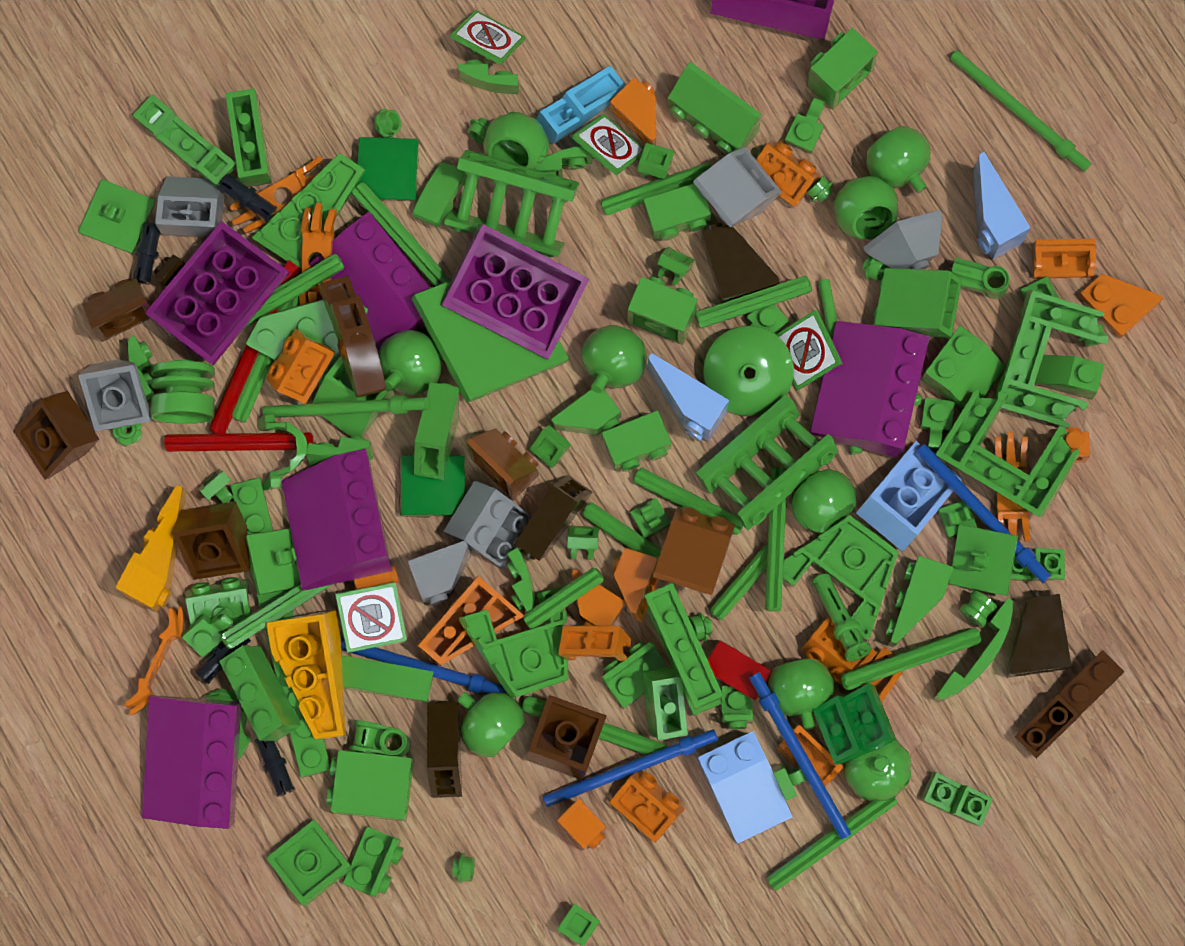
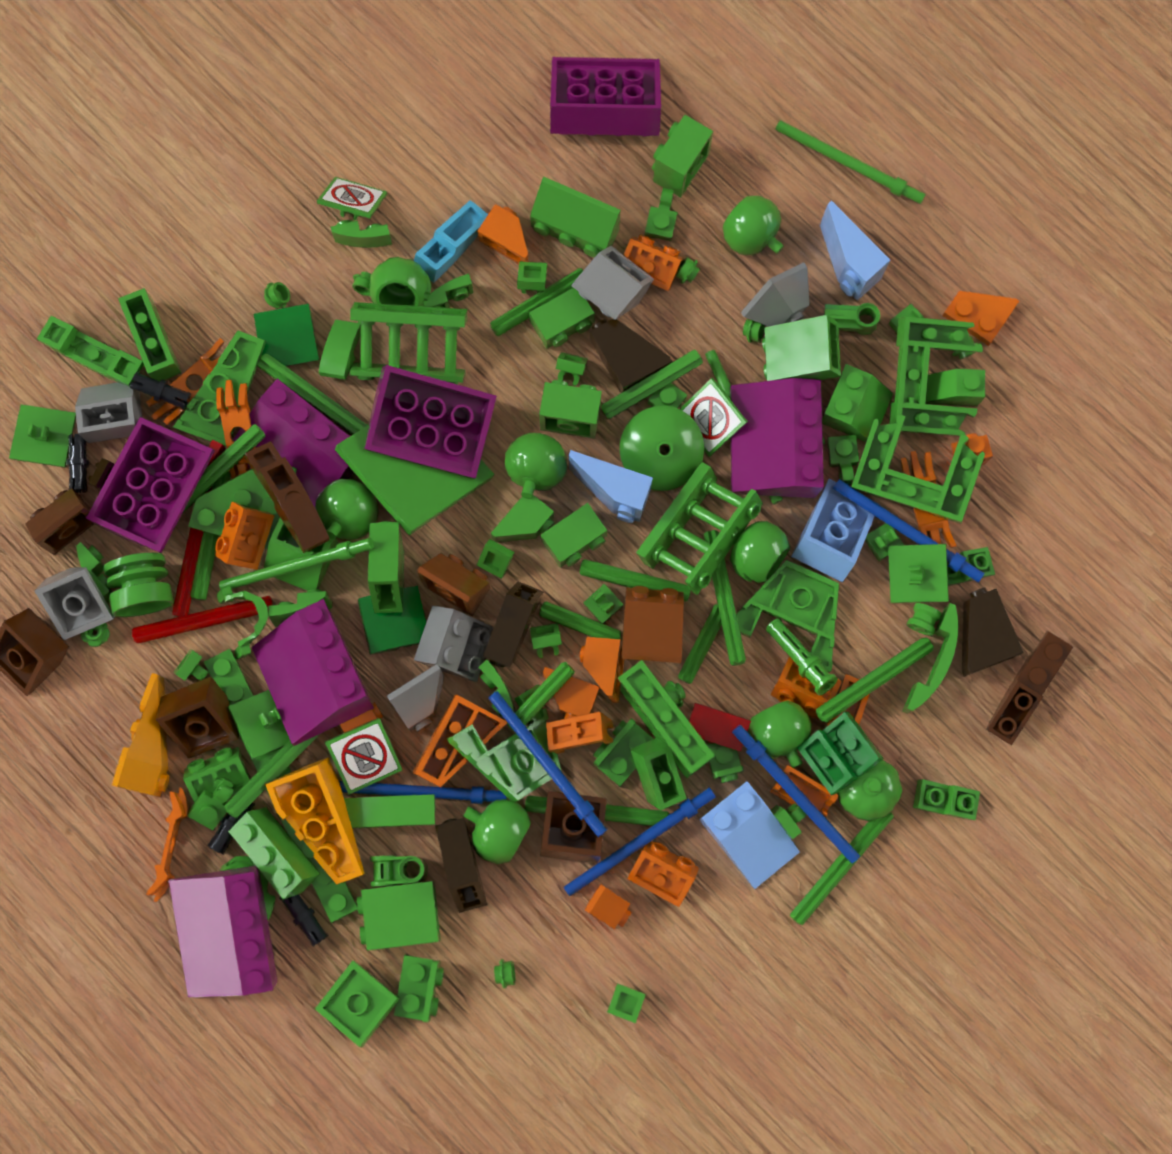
camera: 20 degrees left, 0 degrees up
(580, 719) = (583, 809): none -> blue bar
(609, 144) = (485, 270): piece -> none
(865, 207) = (734, 276): bright green piece -> none
(924, 591) = (871, 612): bright green slope -> none
(1064, 258) = (922, 284): orange hinge -> none

